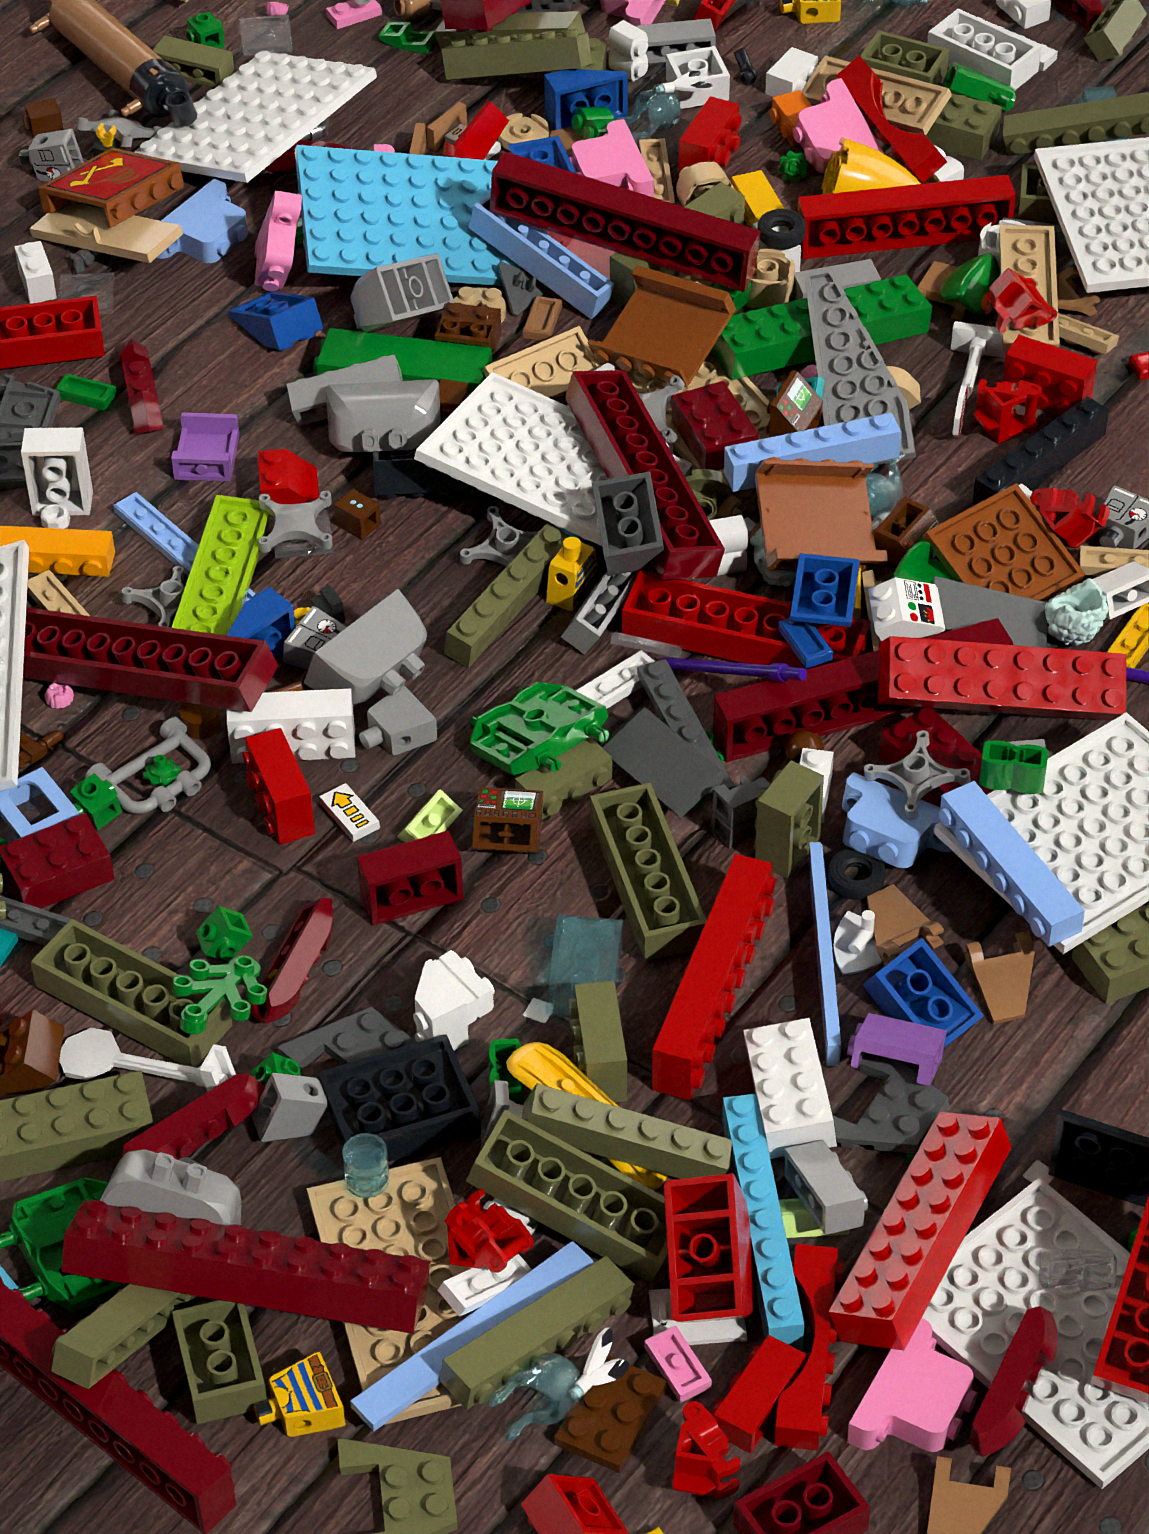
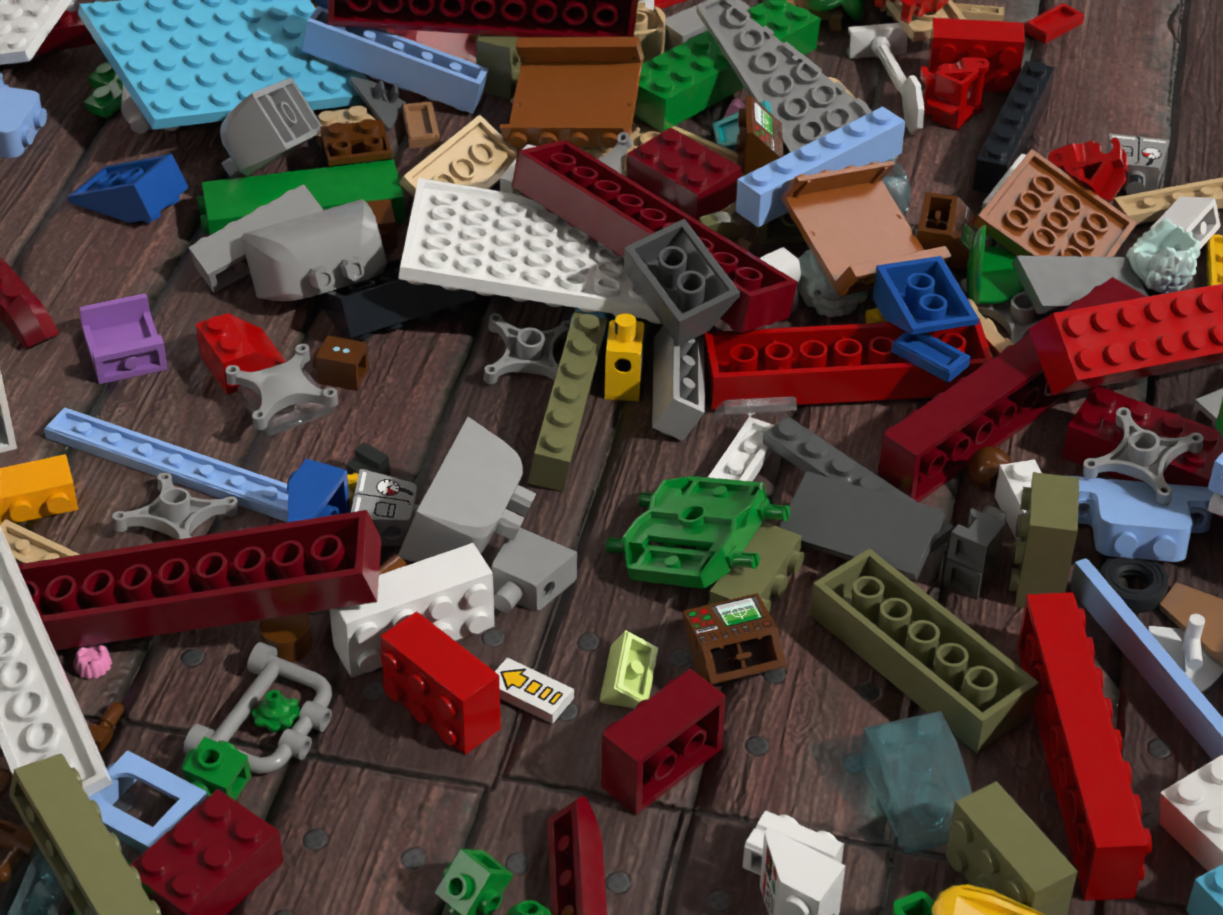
camera: 25 degrees left, 5 degrees down
(222, 566) = (222, 456): lime plate -> none
(277, 241) = (97, 108): bright pink brick -> none
(537, 1010) = (891, 852): white sticker -> none
(776, 671) = (939, 389): dark purple bar -> none
(906, 609) = (1013, 298): white slope -> none

